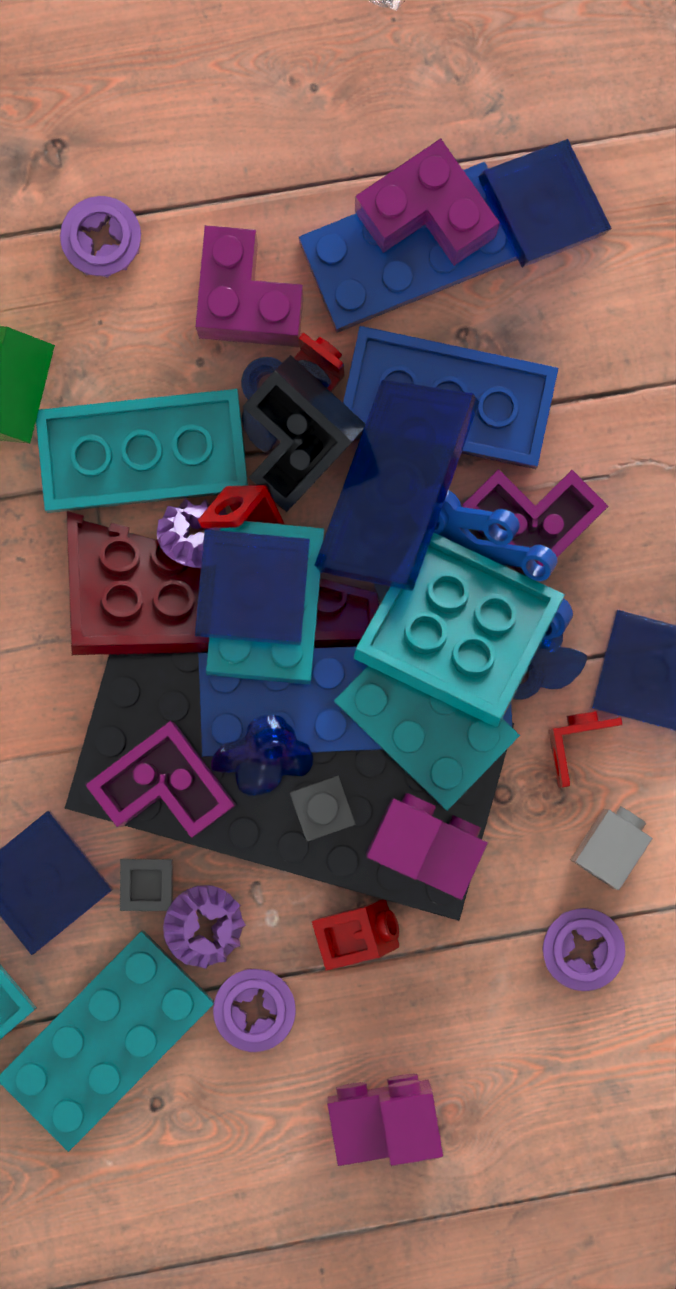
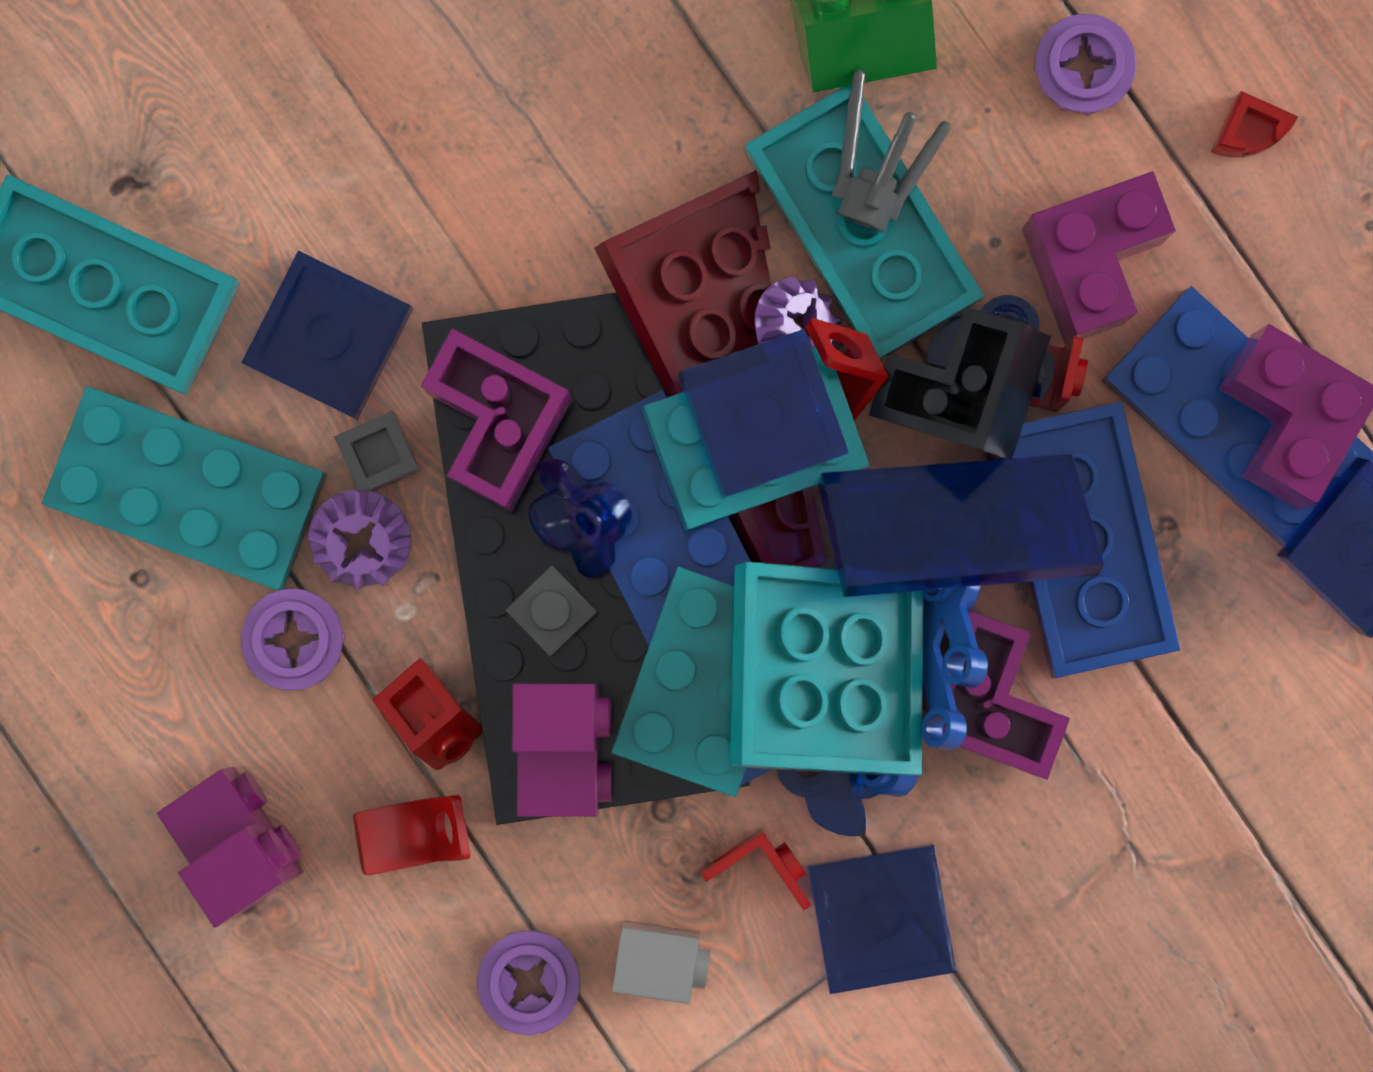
camera: 70 degrees right, 0 degrees up
(128, 434) = (871, 196): none -> dark grey plant
(203, 138) = (1252, 127): none -> red tile
(437, 986) = (410, 834): none -> red bracket

